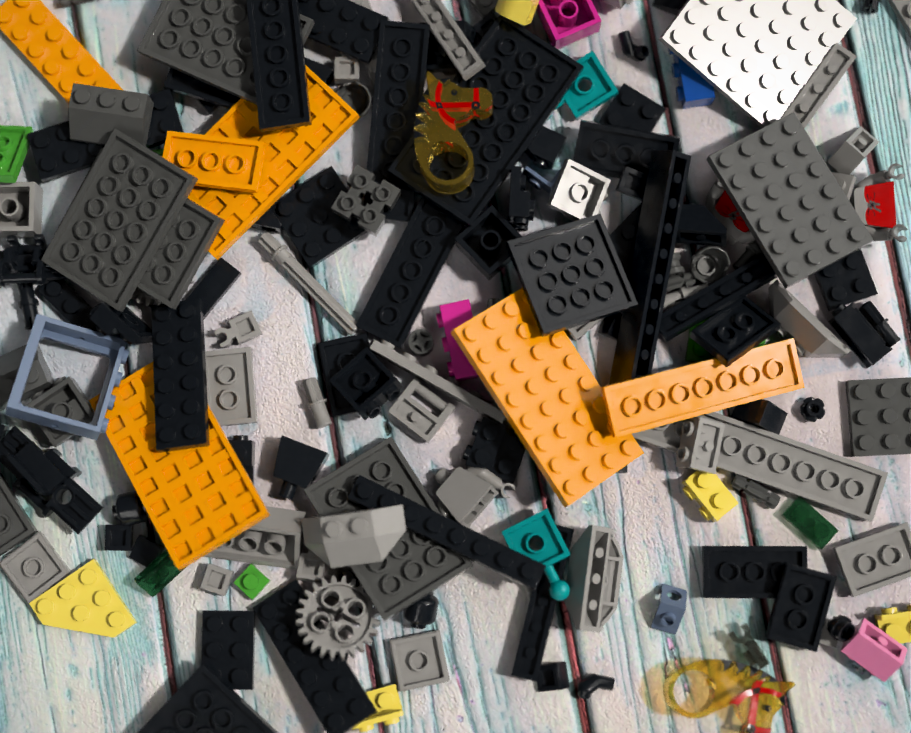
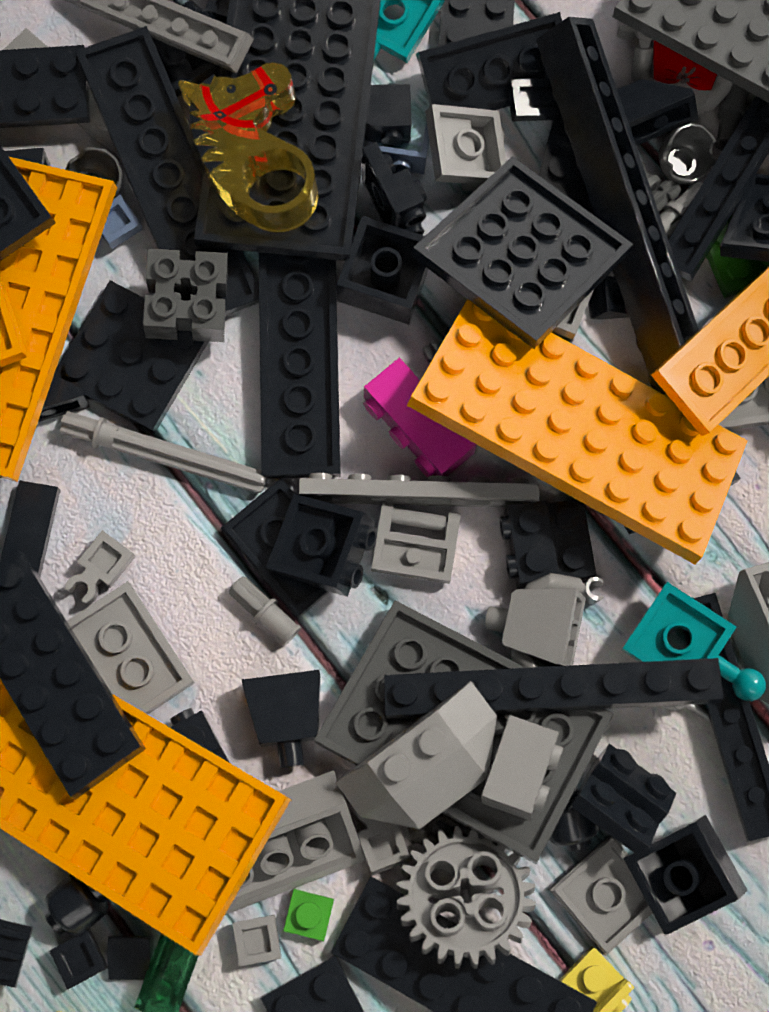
camera: 40 degrees left, 5 degrees down
(345, 69) = (60, 143): light grey plate -> none
(355, 134) = (120, 223): none -> sand blue plate
(402, 566) = (521, 767): none -> light grey brick
(420, 337) = (367, 445): dark grey wheel -> none
(454, 614) = (624, 799): none -> black plate
(466, 673) = (686, 875): none -> black slope

